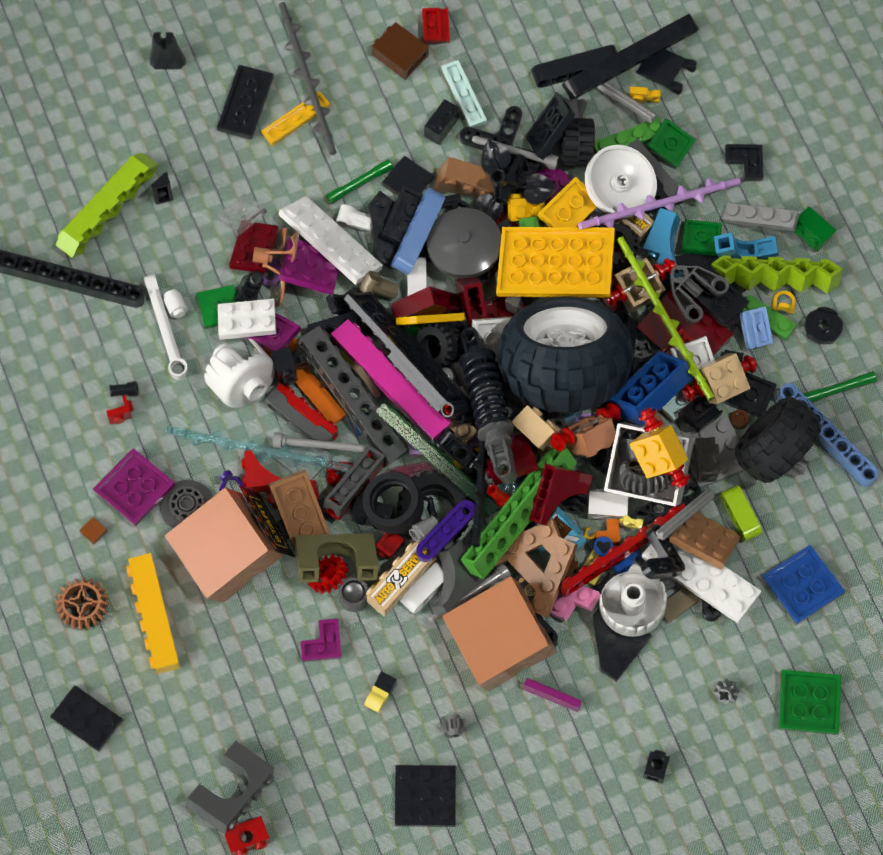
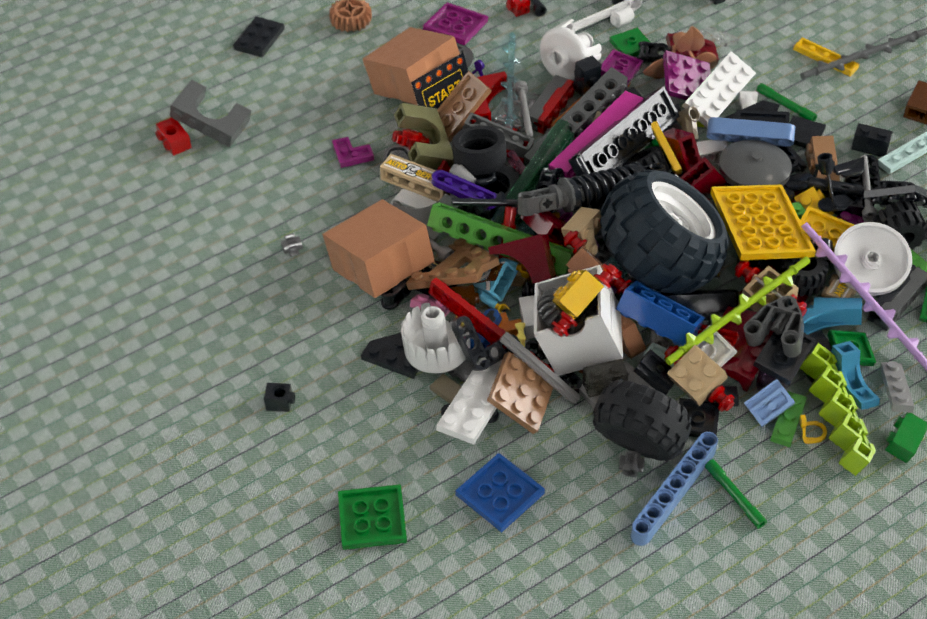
camera: 80 degrees right, 20 degrees down
(93, 530) = (413, 12): dark orange tile -> none
(153, 612) = (346, 53): yellow brick -> none
(245, 102) = (823, 23): black plate -> none
(246, 319) = (622, 51): white plate -> none
(380, 692) = (314, 194): leg -> none
(425, 796) = (226, 241): black plate -> none
(552, 695) = (335, 308): magenta tile -> none
(726, 691) = (366, 440): flat silver gear -> none
(741, 513) = (561, 426): lime beam -> none
(819, 335) = (795, 476): black plate -> none

